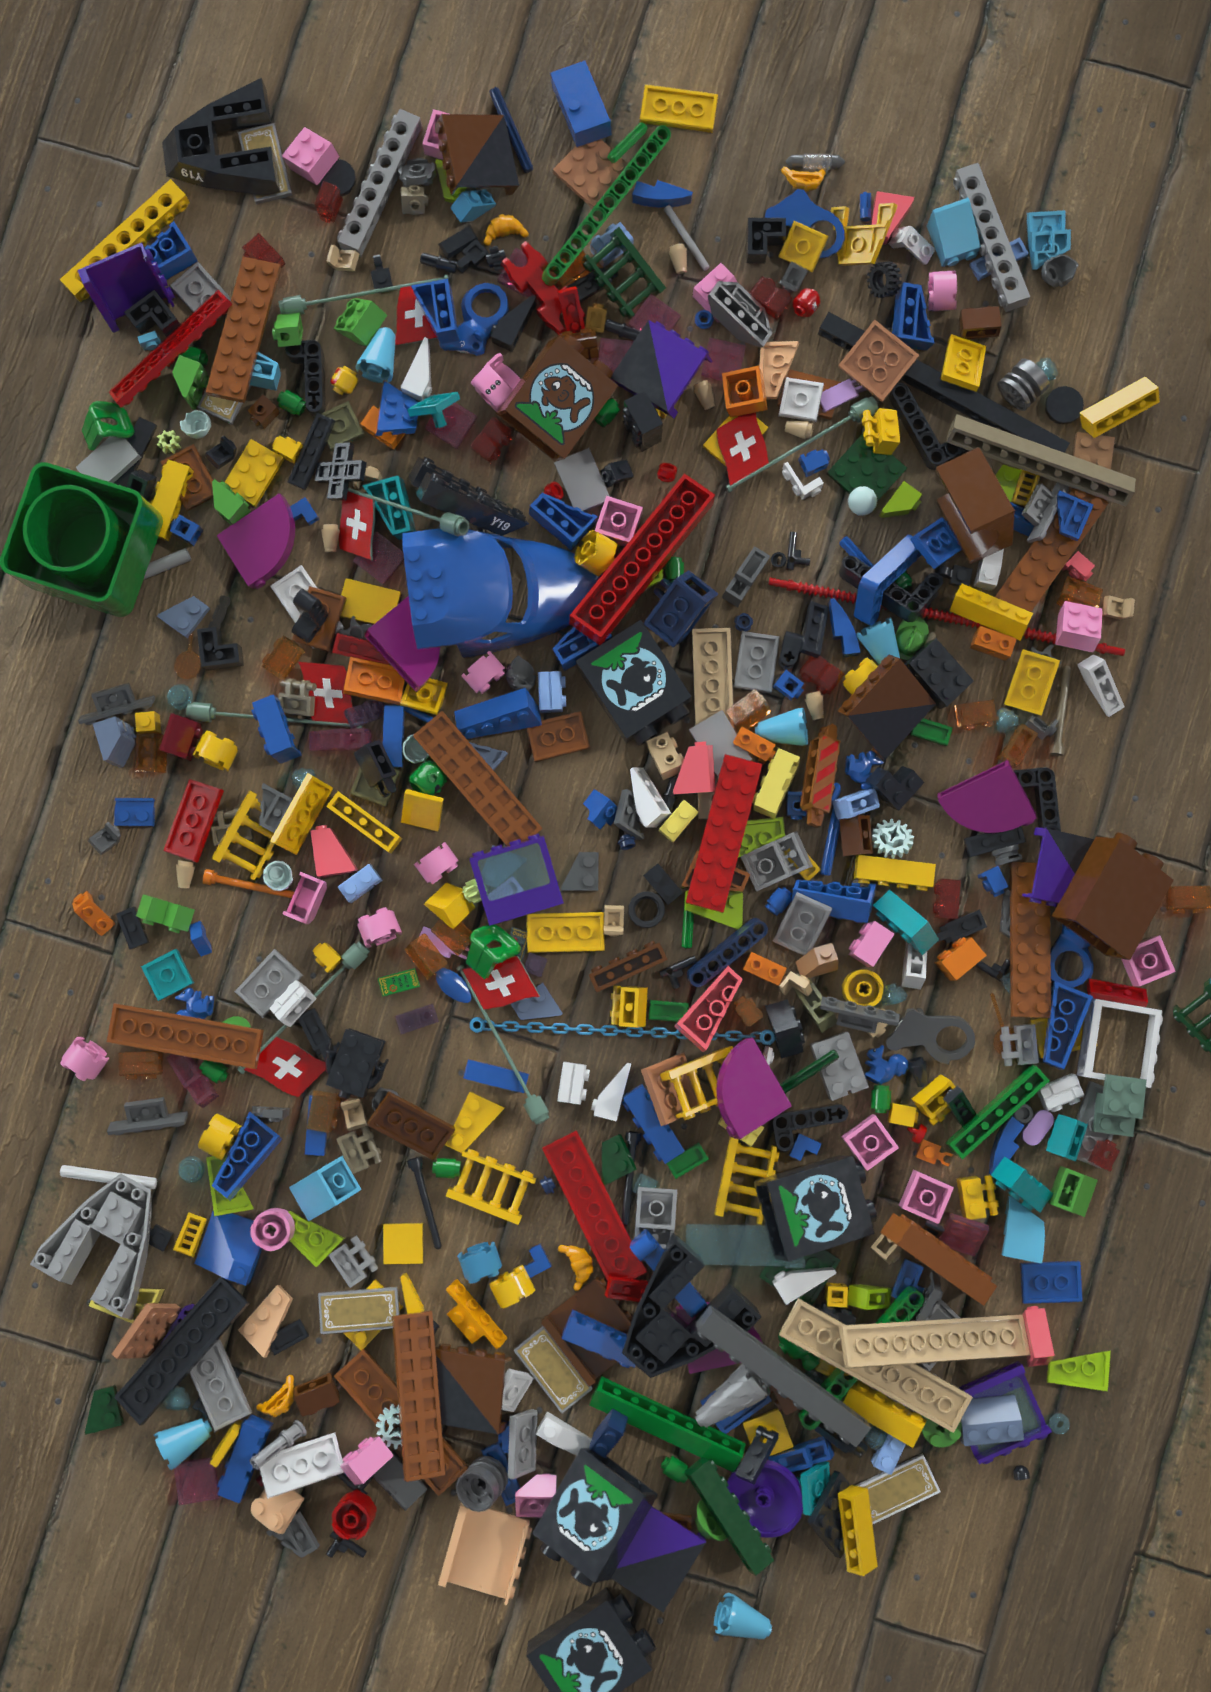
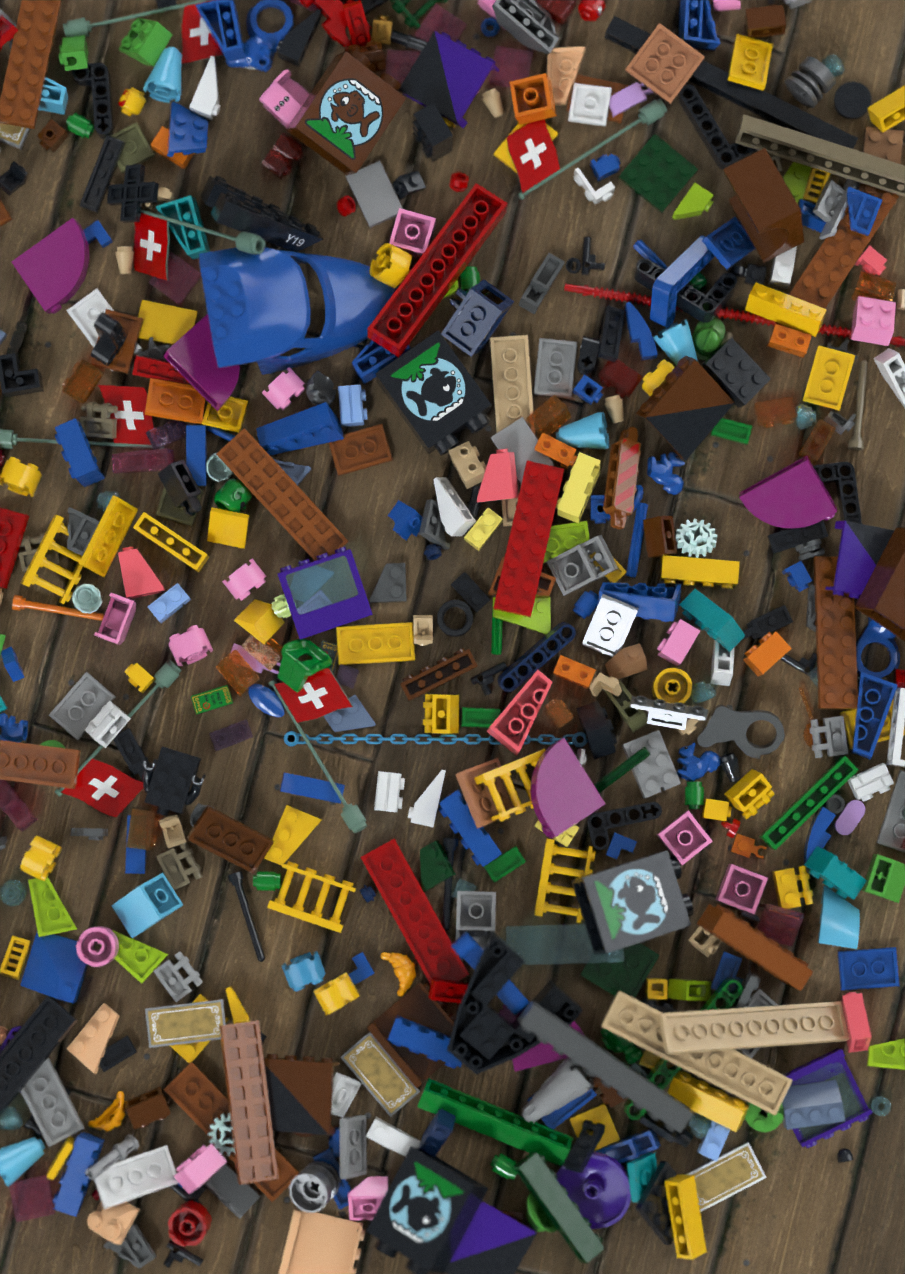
camera: 10 degrees left, 0 degrees up
(214, 1071) = (32, 794): green brick -> none
(228, 505) = (22, 231): bright green slope -> none
(249, 1151) = (67, 876): blue wedge -> none
(254, 472) = (44, 197): yellow plate -> none
(287, 448) = (78, 172): yellow brick -> none
(403, 1243) = (226, 957): yellow tile -> none
(434, 405) = (223, 124): teal tile -> none
(458, 425) = (241, 140): clear pink plate -> none
(472, 1318) = (298, 1027): light orange bracket -> none
(561, 520) = (356, 234): blue wedge -> none
(607, 413) = (397, 125): green brick -> none
(748, 622) = (540, 324): dark blue plate -> none
(798, 1282) = (618, 977): white slope -> none
(800, 428) = (589, 133): tan cone -> none
(856, 804) = (658, 505): light blue brick -> none
(862, 500) = (654, 203): light aqua hair -> none
(881, 430) = (670, 133): yellow brick -> none
(896, 788) = (696, 489): black brick -> none
(947, 899) = (752, 595): clear red brick -> none
(959, 1105) = (771, 798): black plate -> none
(1066, 1137) = (878, 825): teal brick -> none

